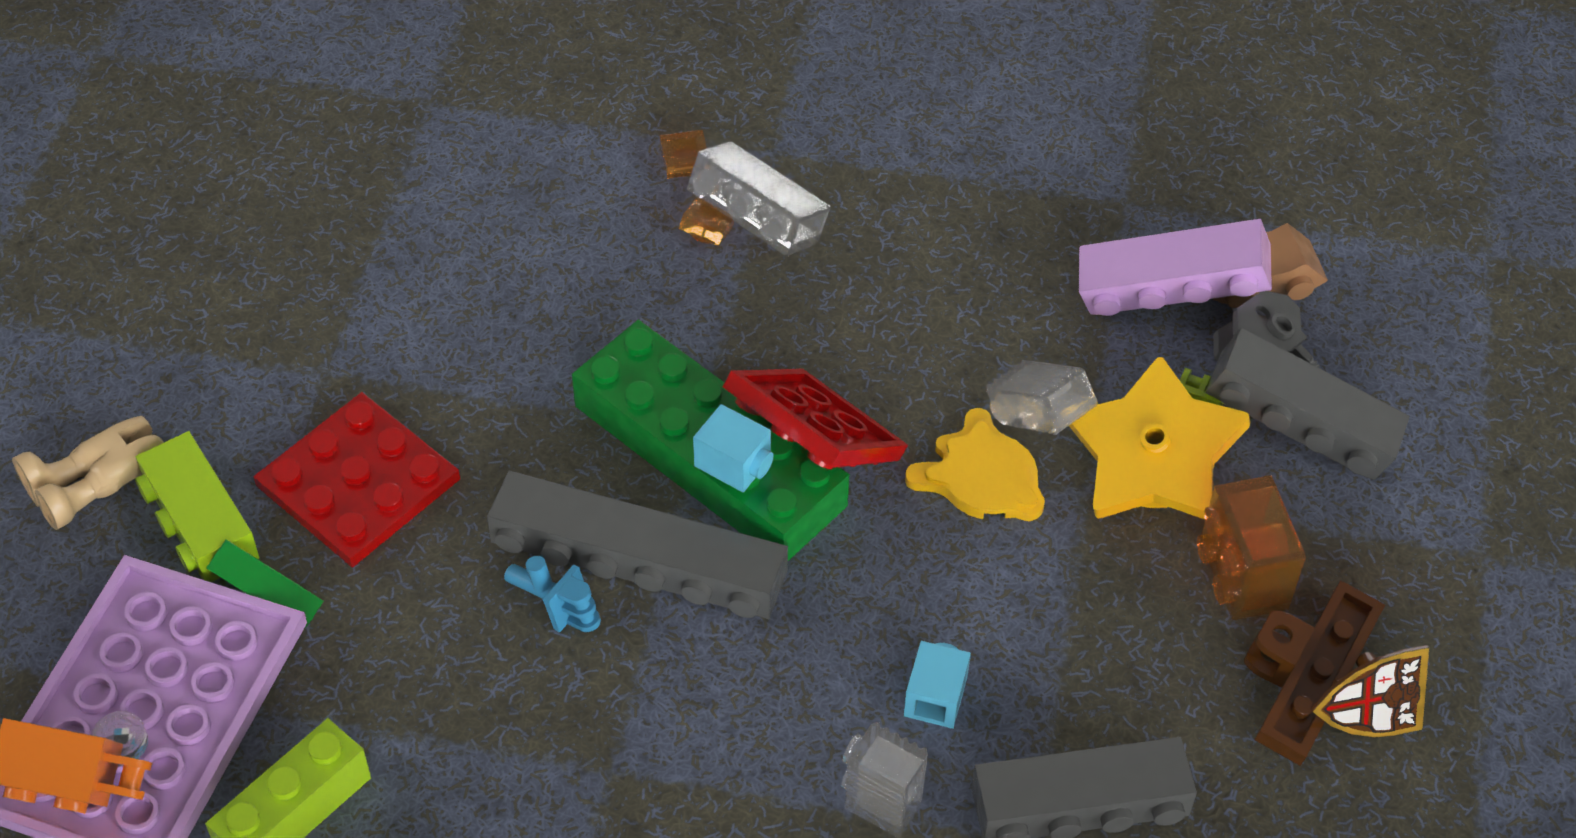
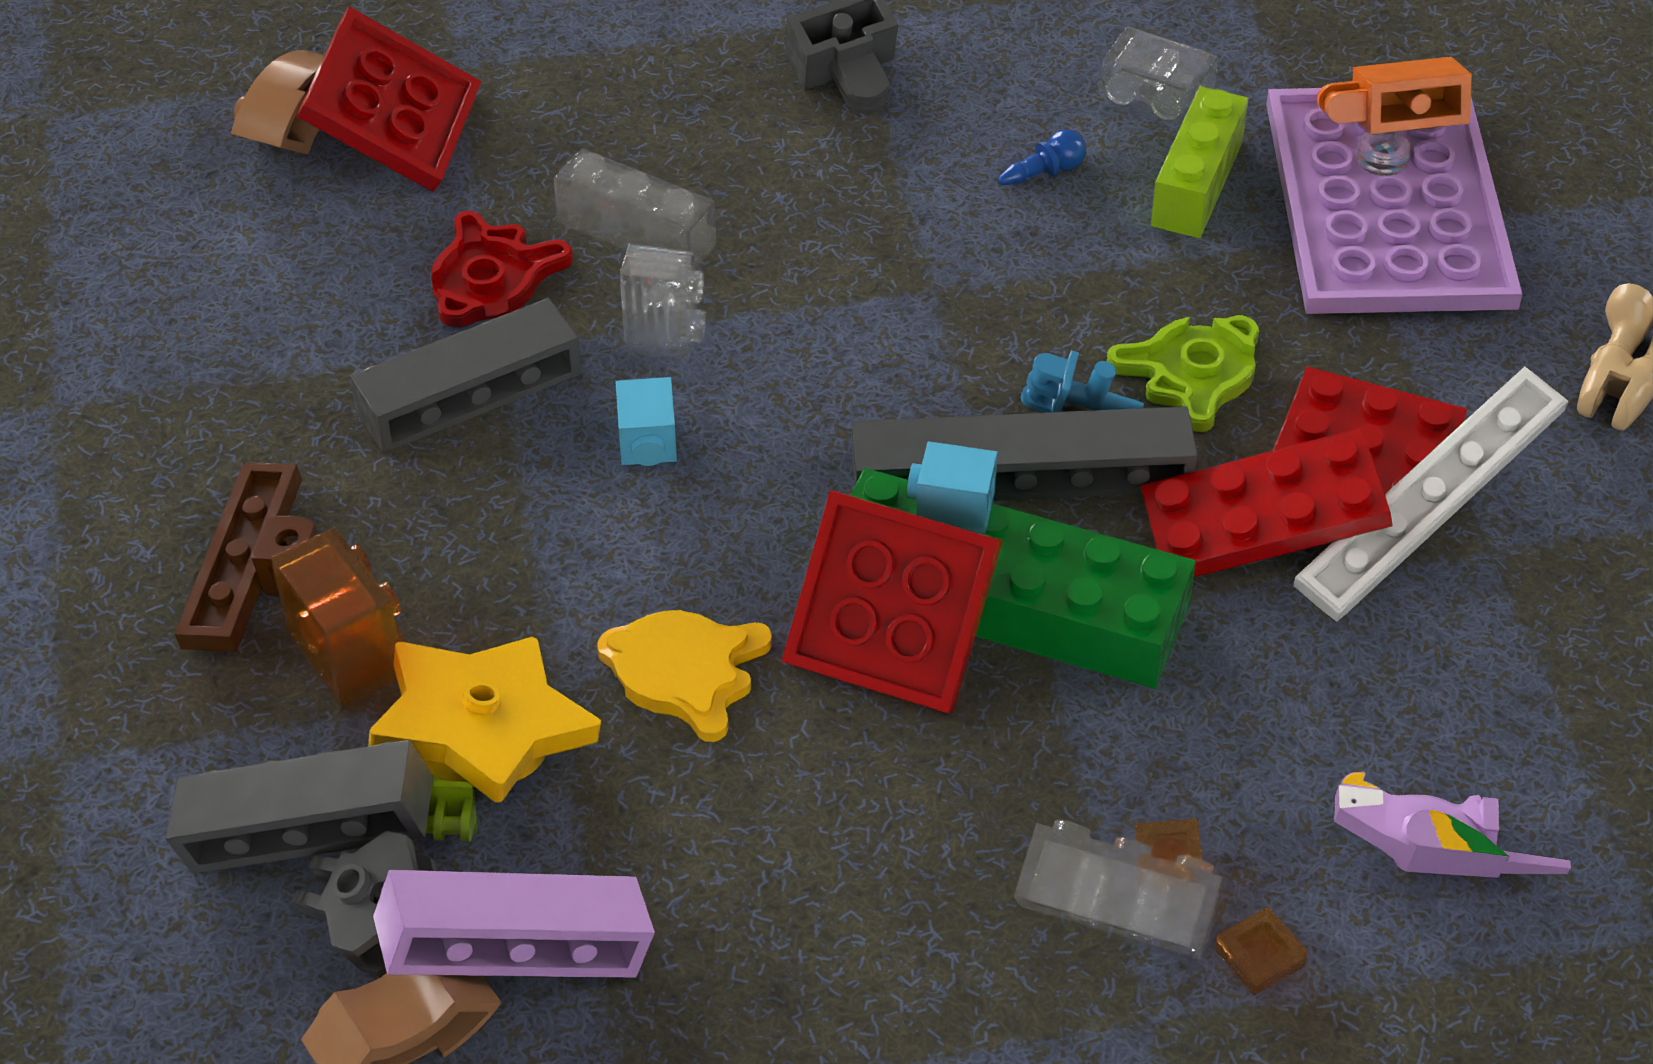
camera: 160 degrees right, 5 degrees down
(191, 503) = (1485, 349): lime brick -> none
(261, 580) = (1367, 311): green sticker -> none
(344, 393) = (1433, 492): none -> white tile
(436, 603) = (1193, 365): none -> lime tile
(474, 427) = (1269, 503): none -> red plate
(527, 175) = (1432, 833): none -> lavender animal
(1041, 396) = (638, 721): clear brick -> none
(1379, 695) = (177, 522): shield -> none

